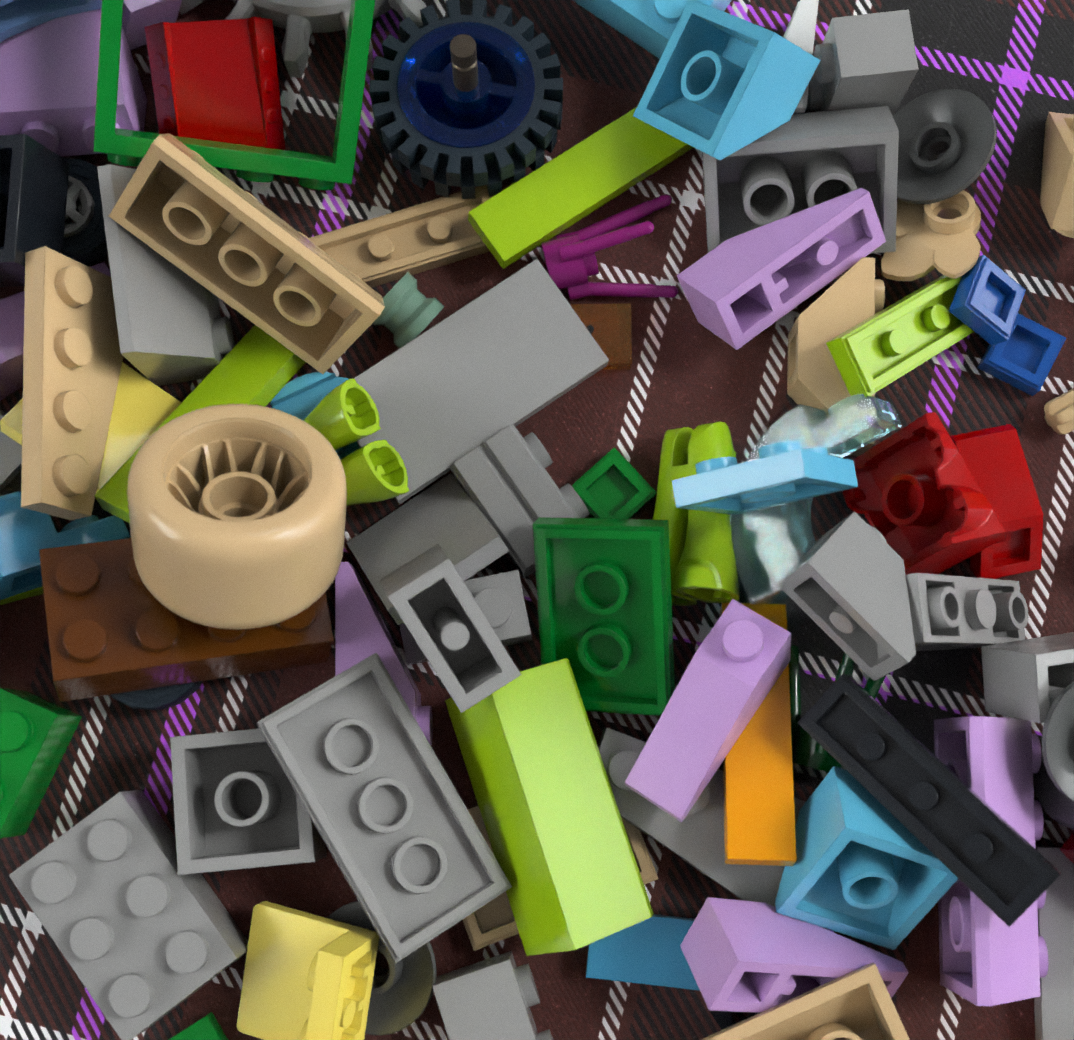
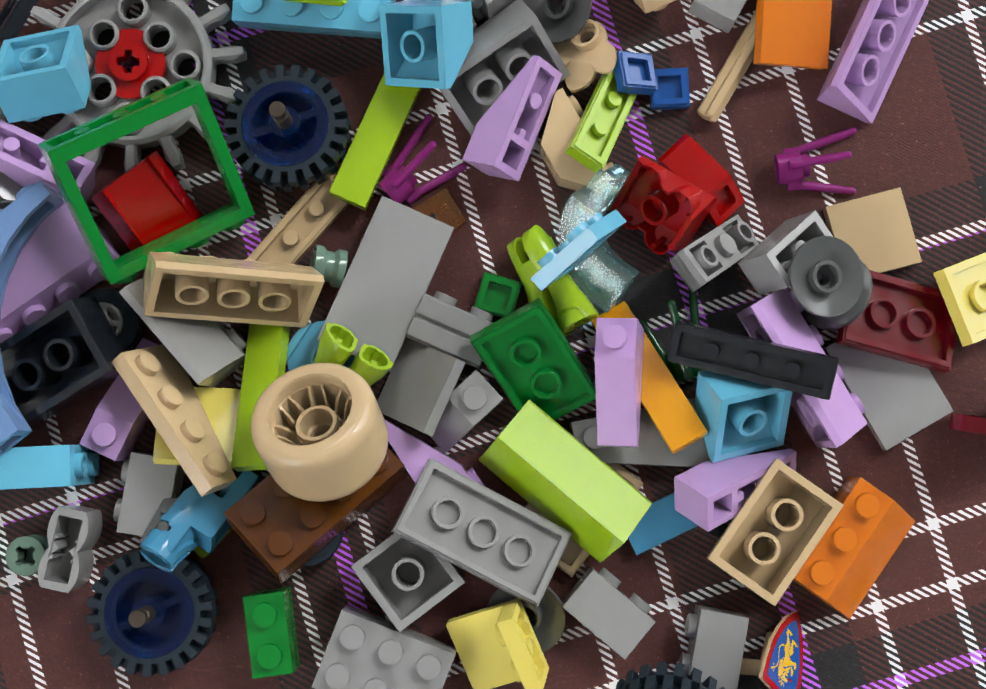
camera: 35 degrees left, 5 degrees up
(449, 627) = (462, 421): light grey brick -> none
(857, 595) = (658, 277): light grey slope -> none

